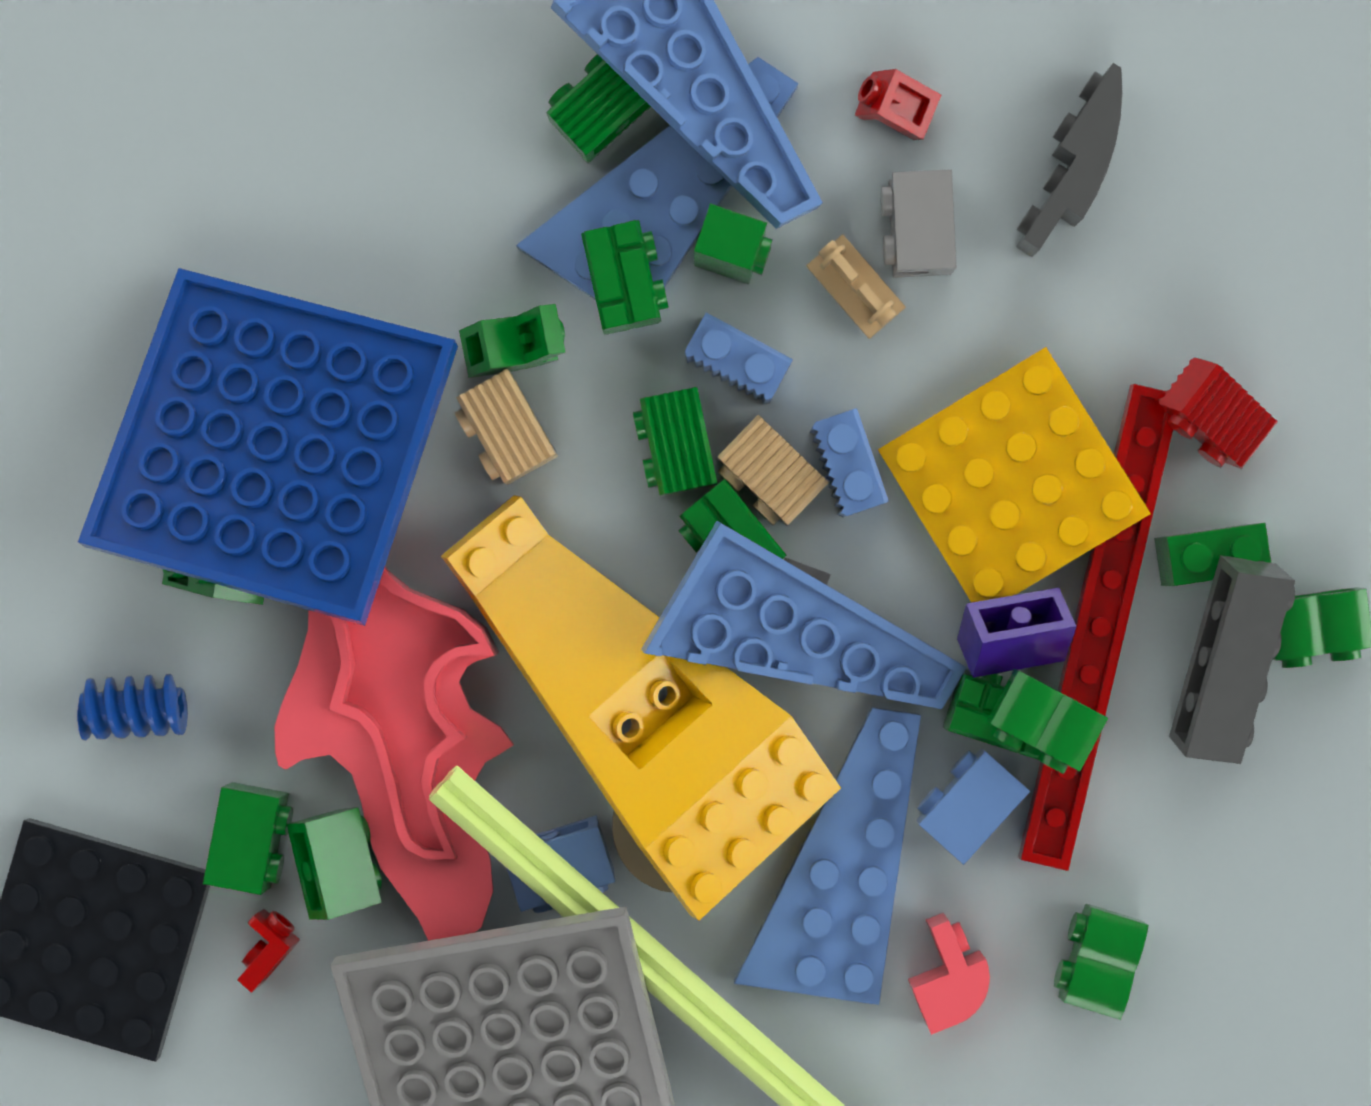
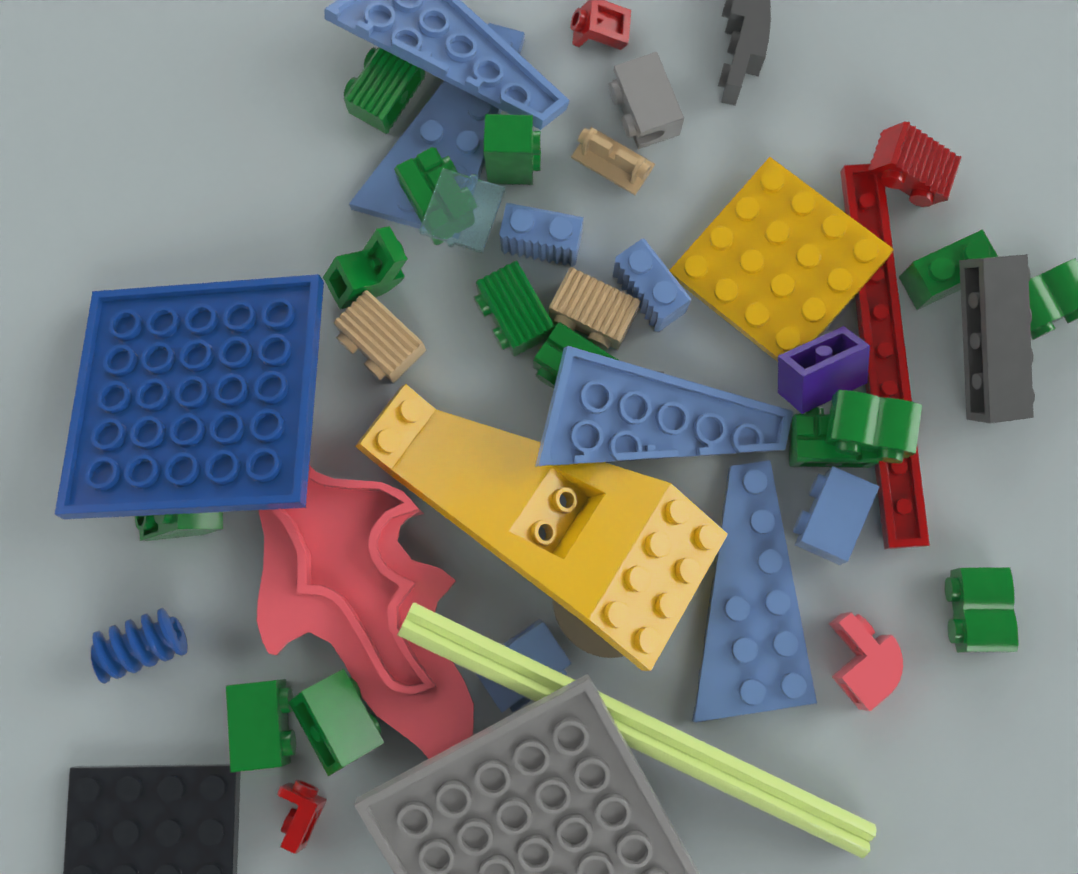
camera: 10 degrees left, 10 degrees down
(647, 314) = (462, 210): none -> clear light blue piece

